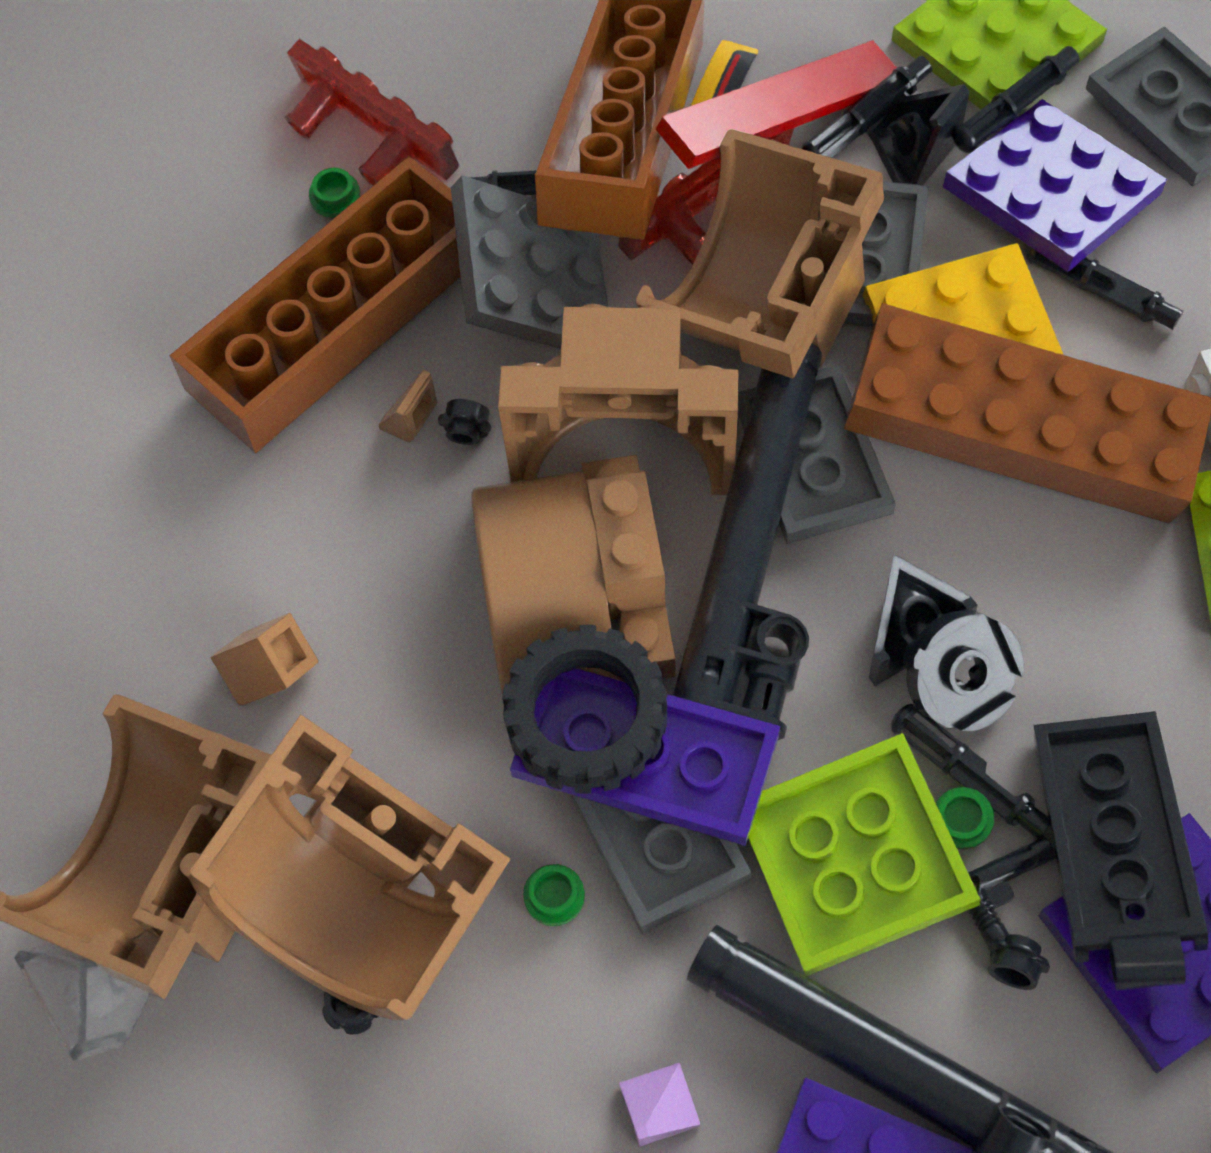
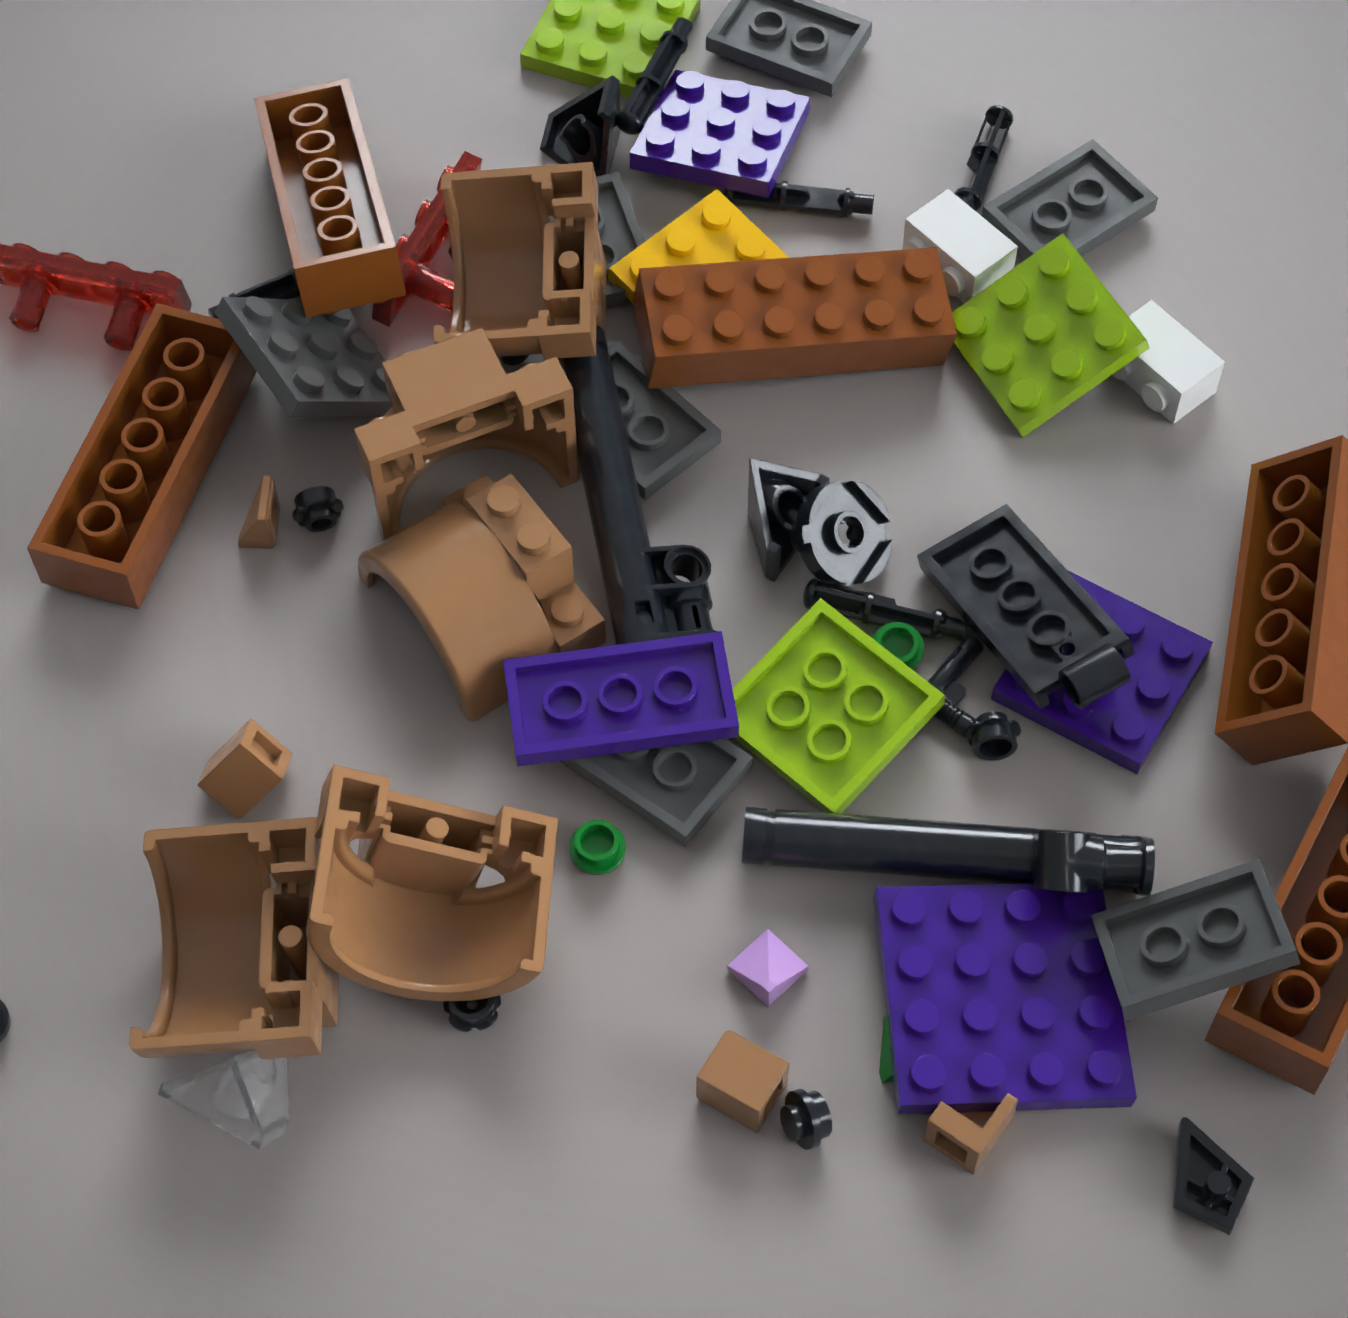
camera: 30 degrees left, 5 degrees down
(333, 192) = (90, 366): green plate -> none
(586, 650) = (557, 630): black tyre -> none
(725, 70) = (392, 148): sticker -> none
(775, 102) = (463, 143): tile -> none
(869, 109) = (539, 120): black piece -> none

